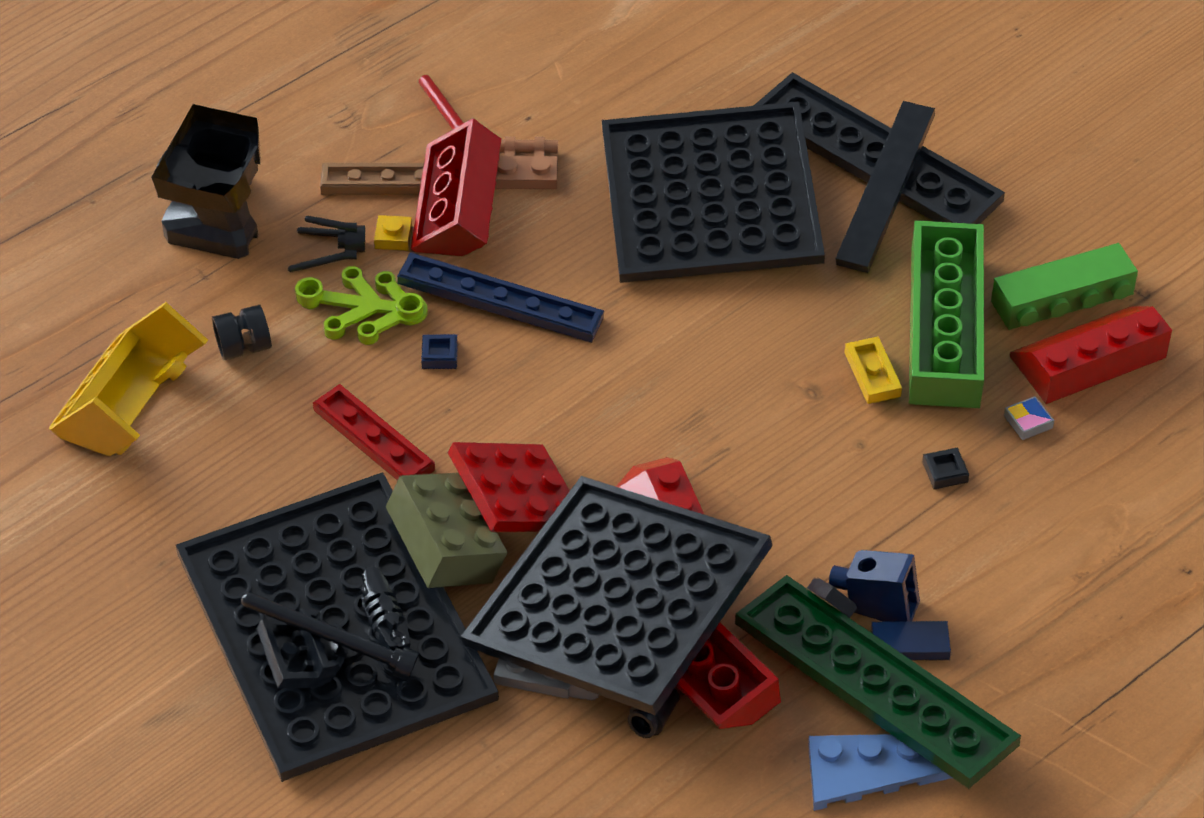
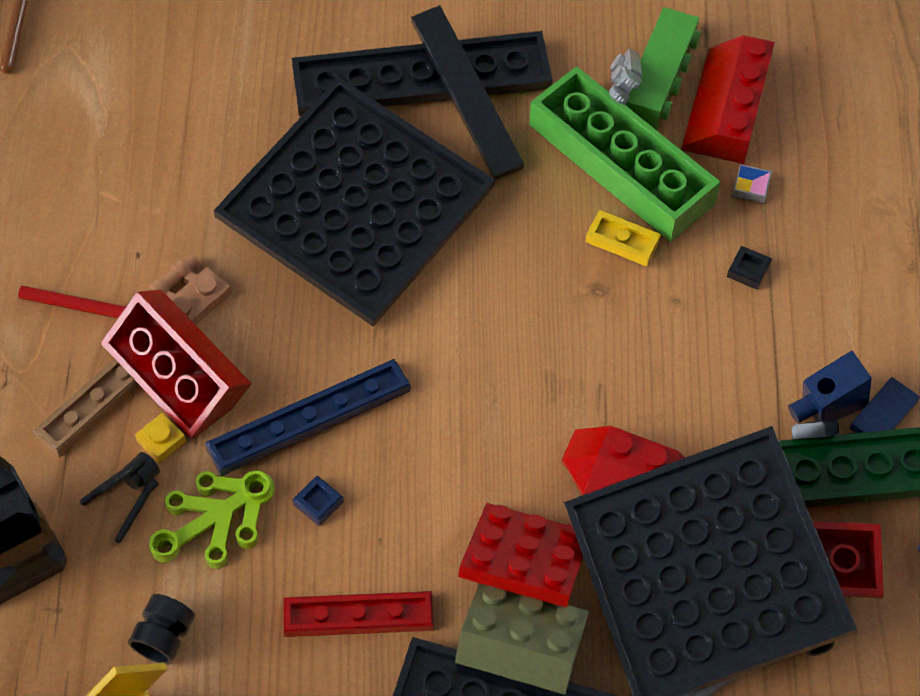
camera: 50 degrees left, 10 degrees up
(1010, 260) = (625, 75): none -> light grey hinge

